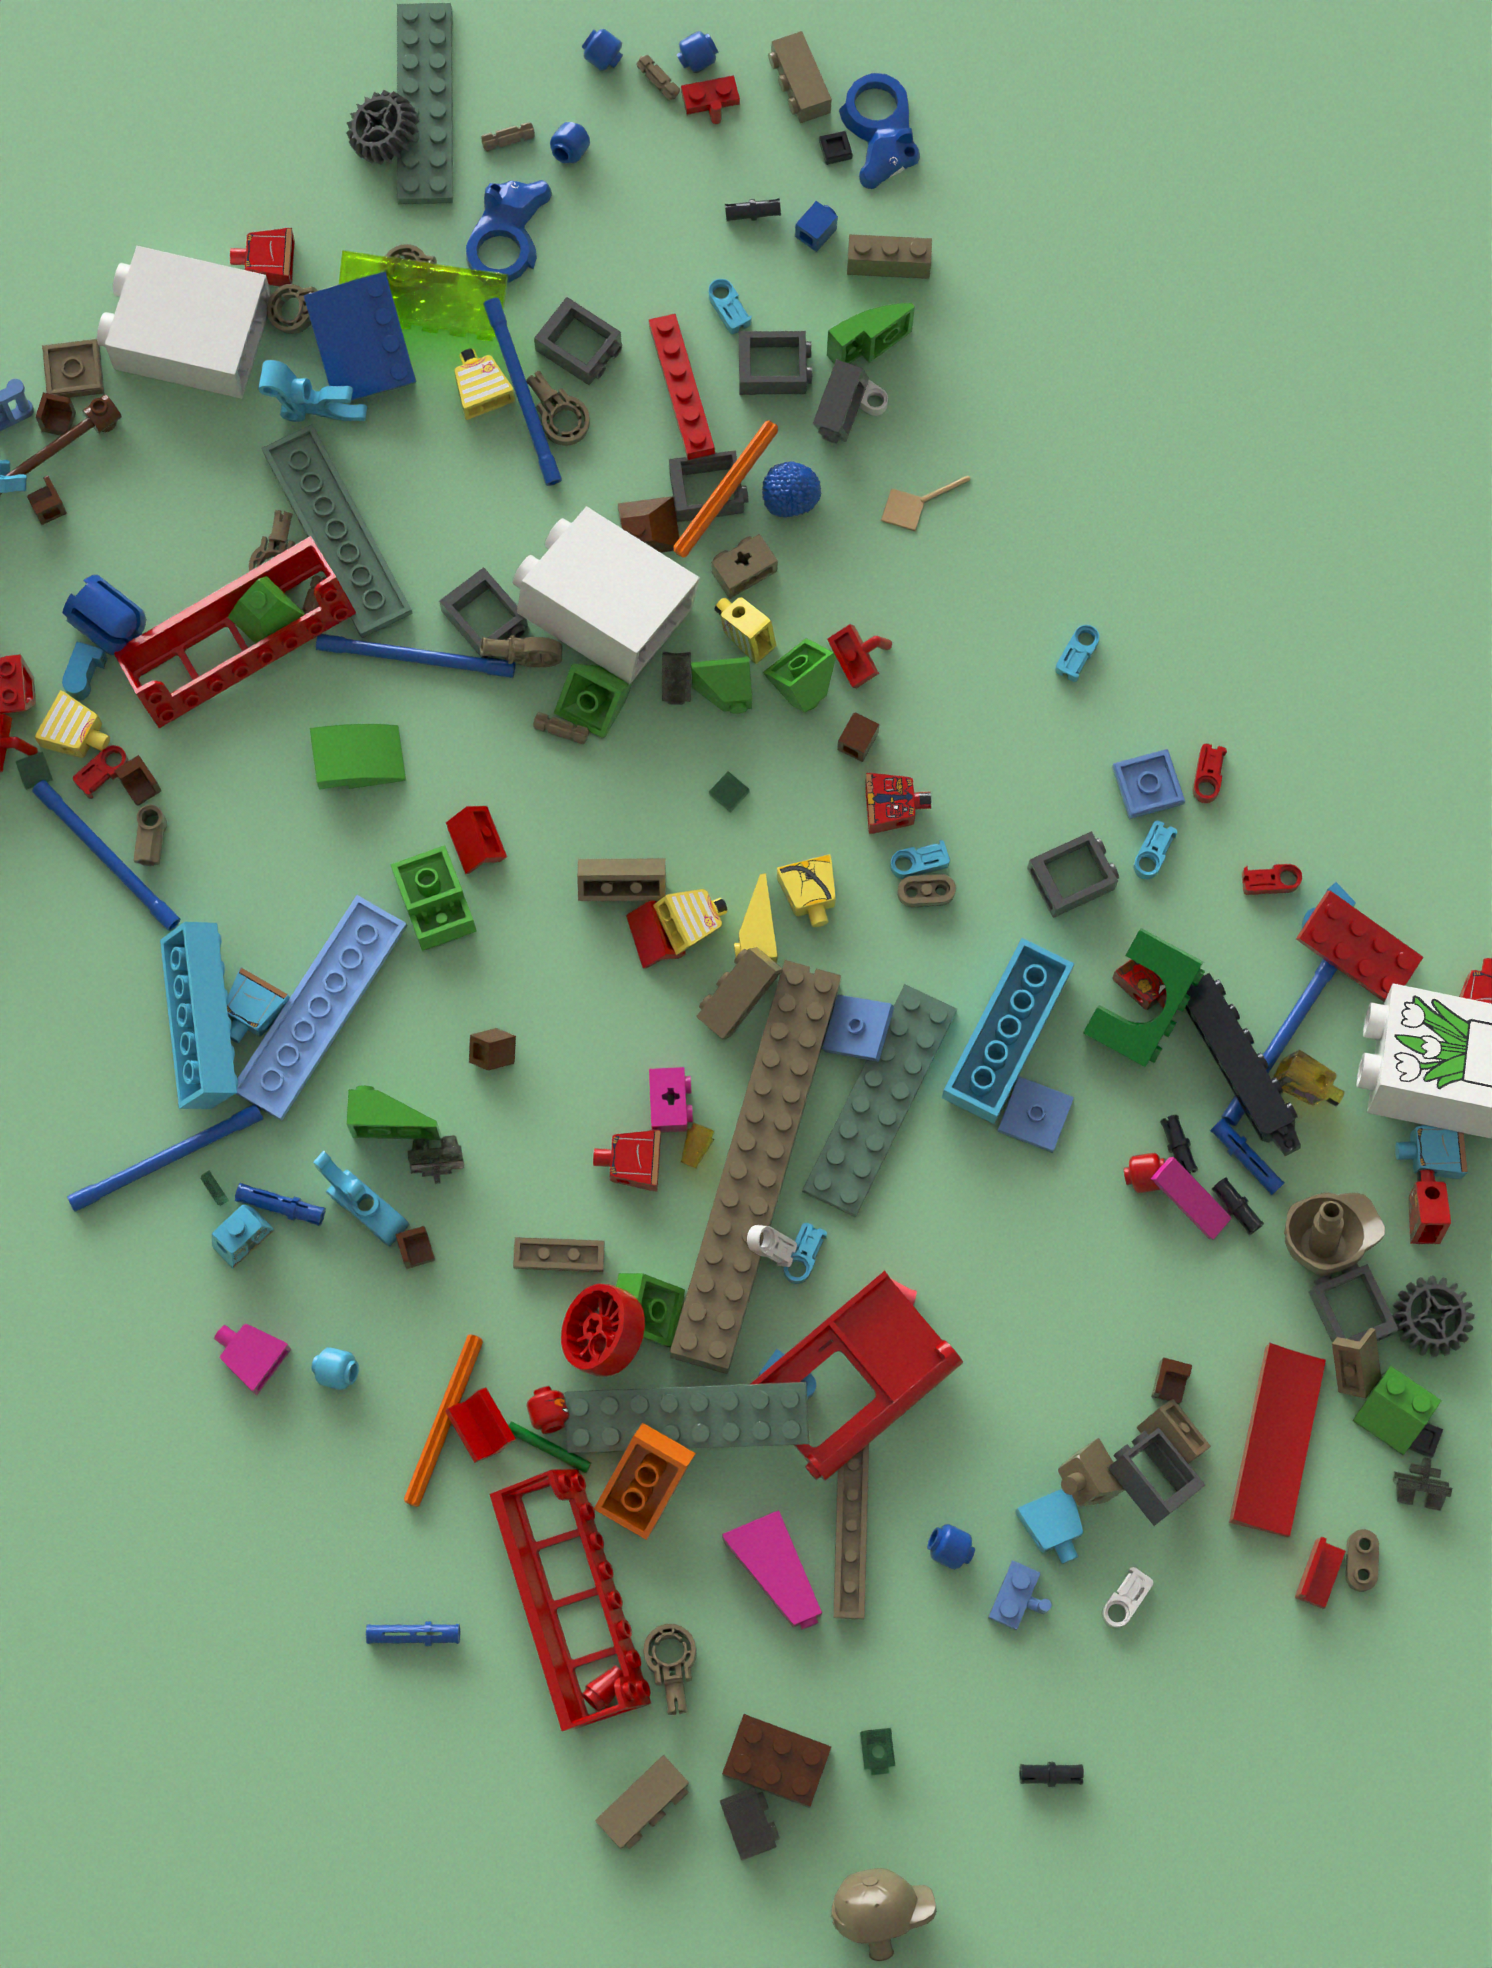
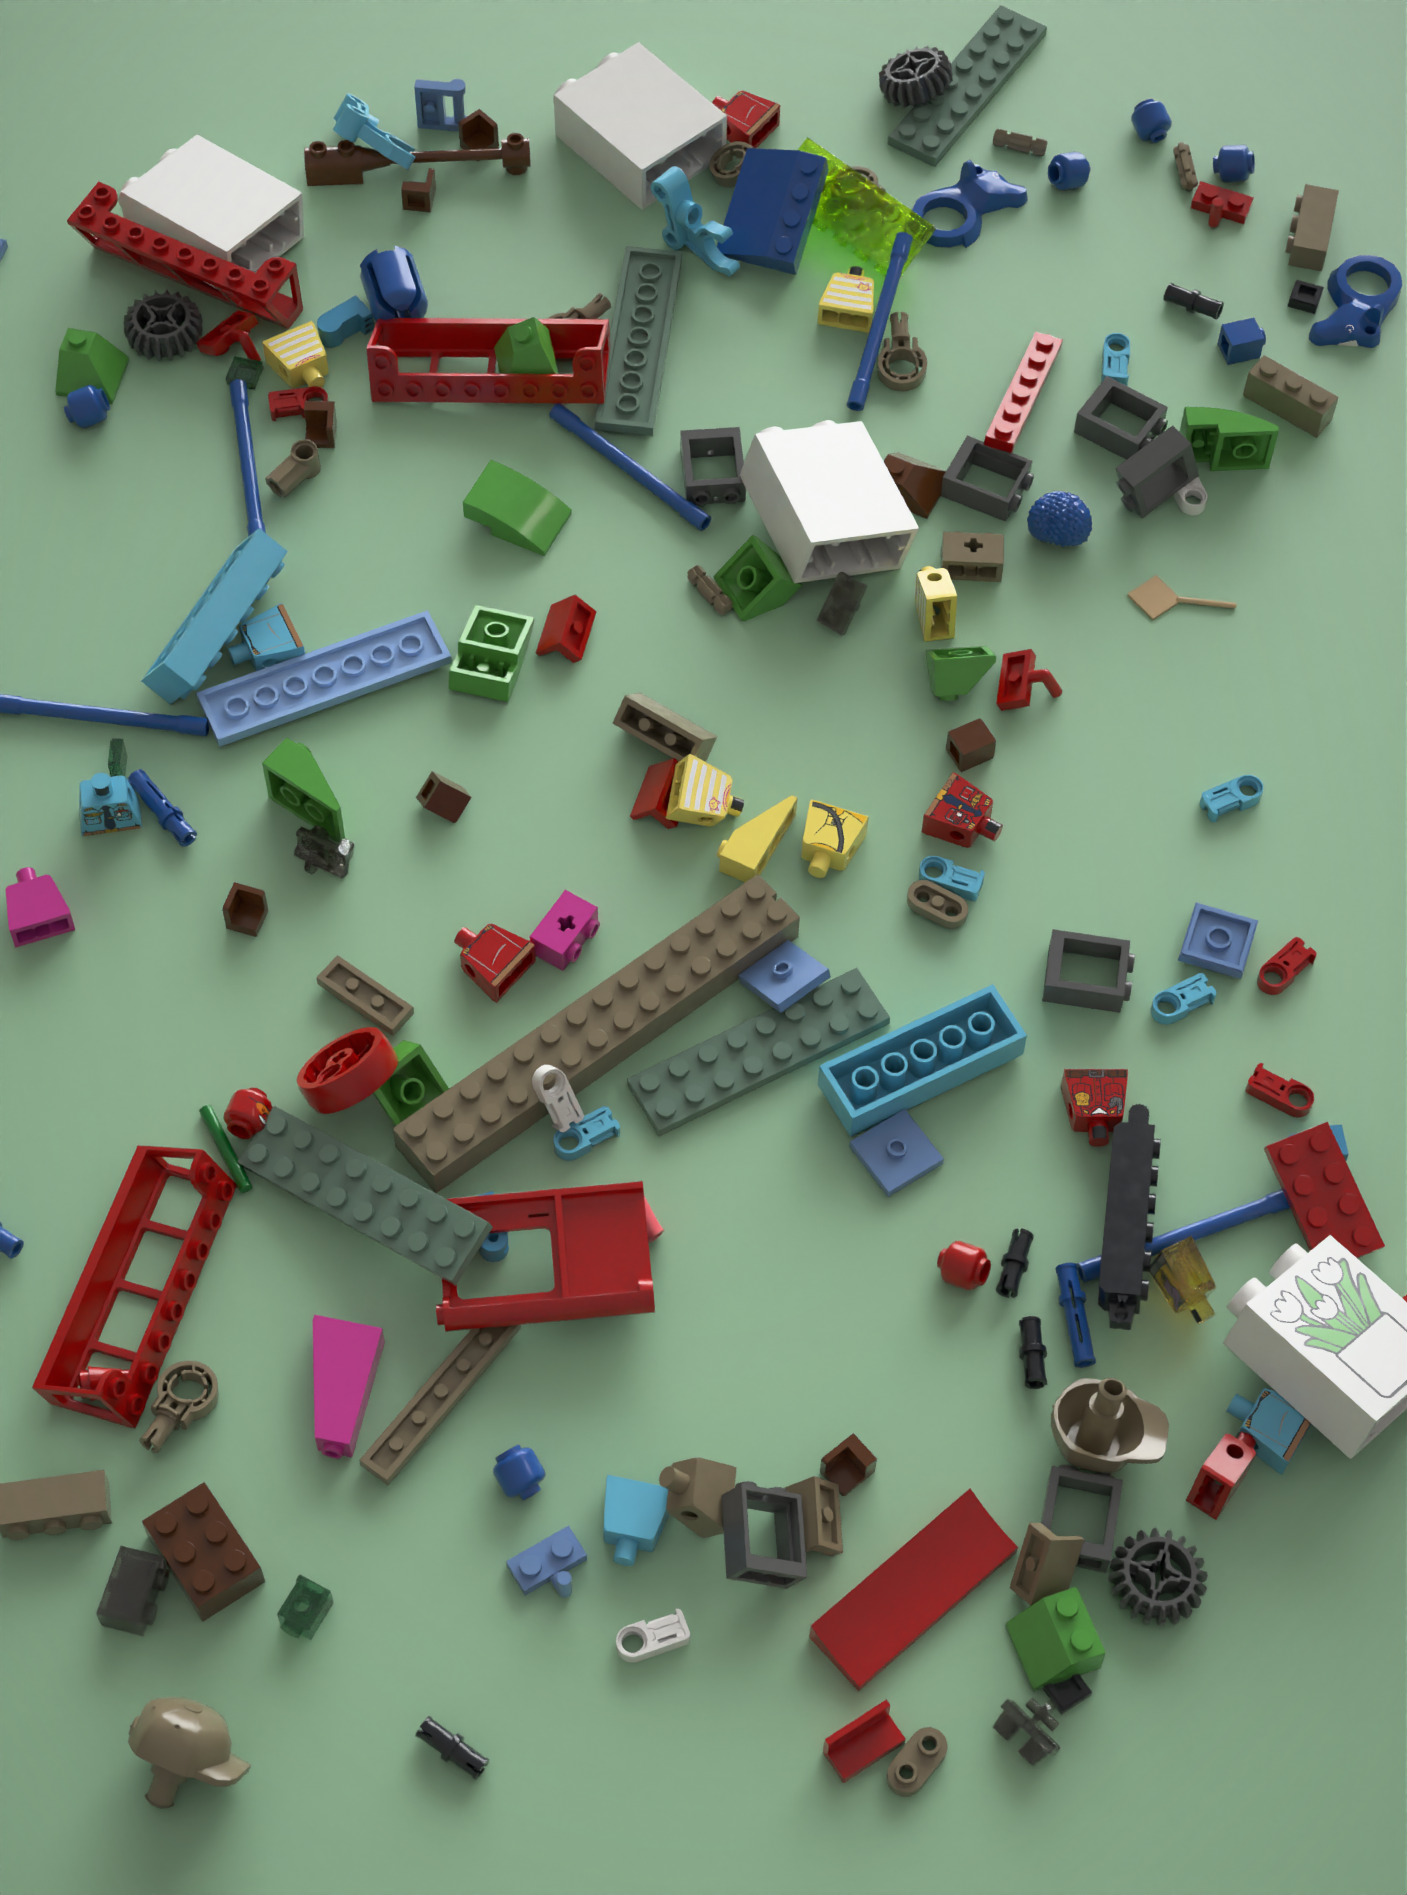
camera: 35 degrees right, 15 degrees down
(73, 368) = (522, 114): dark tan tile -> none
(335, 1368) = (96, 962): medium azure head -> none
(350, 1191) = (226, 831): medium azure piece -> none
(442, 1422) = (152, 1066): orange axle -> none
(480, 1425) = (178, 1088): red panel -> none
(526, 652) = (719, 503): dark tan pin -> none
(557, 324) = (956, 292): dark grey window -> none
(644, 1481) = (280, 1219): orange brick -> none
(696, 1144) = (560, 982): clear yellow cone -> none
(724, 683) = (881, 629): bright green slope -> none
(725, 489) = (999, 481): orange axle -> none
(729, 791) = (819, 723): clear green tile -> none
(738, 992) = (695, 876): dark tan brick -> none
(1141, 1039) = (1119, 1102): green arch -> none
(1191, 1198) = (990, 1312): dark pink tile -> none

